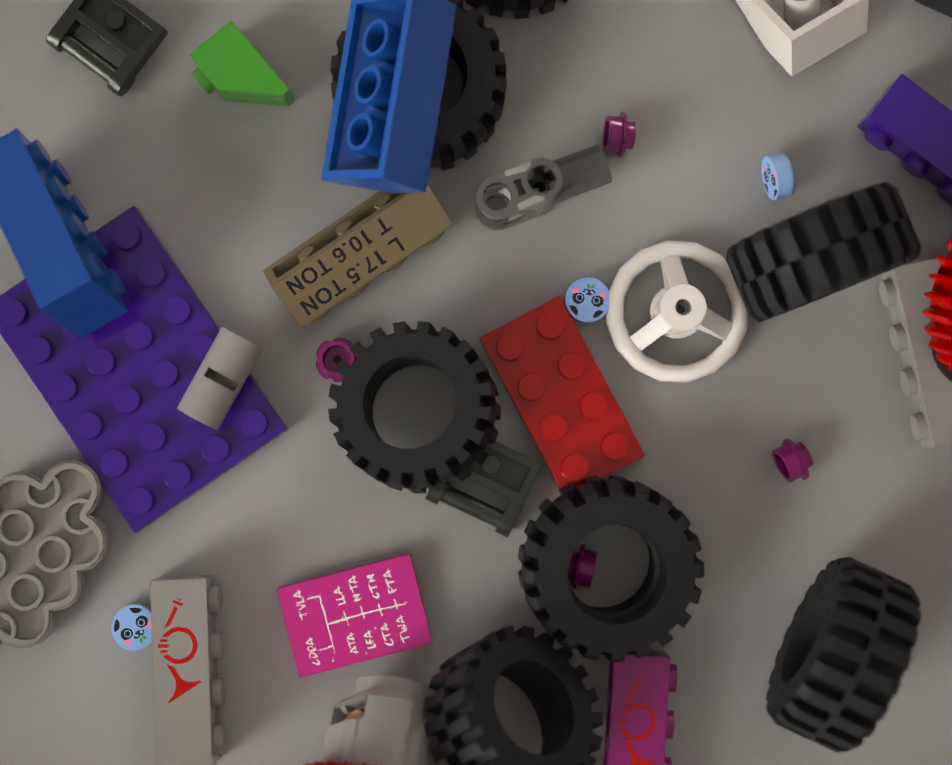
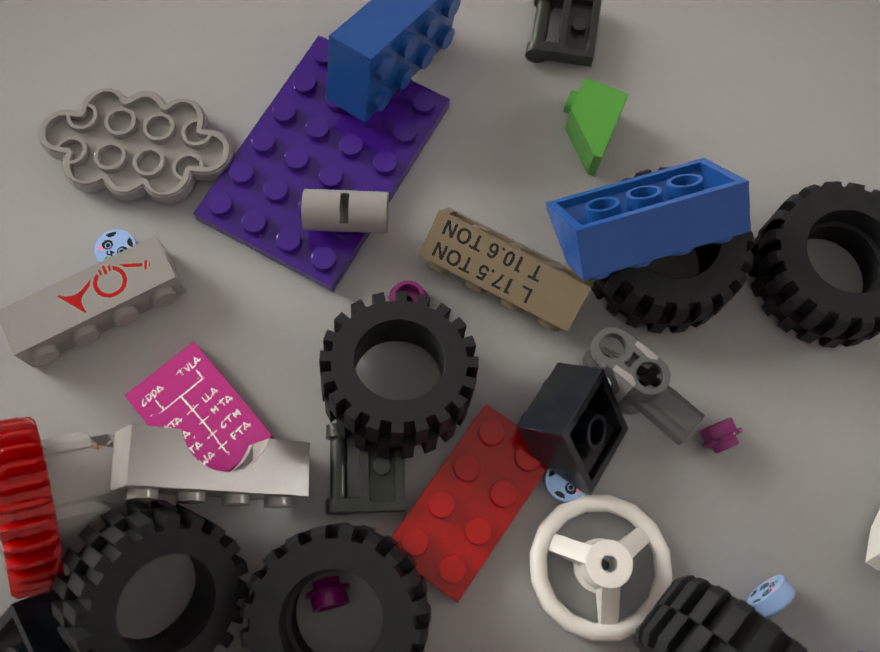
camera: 65 degrees right, 15 degrees down
(404, 661) = (159, 462): none -> light grey arch
(543, 267) = (574, 424): none -> black slope

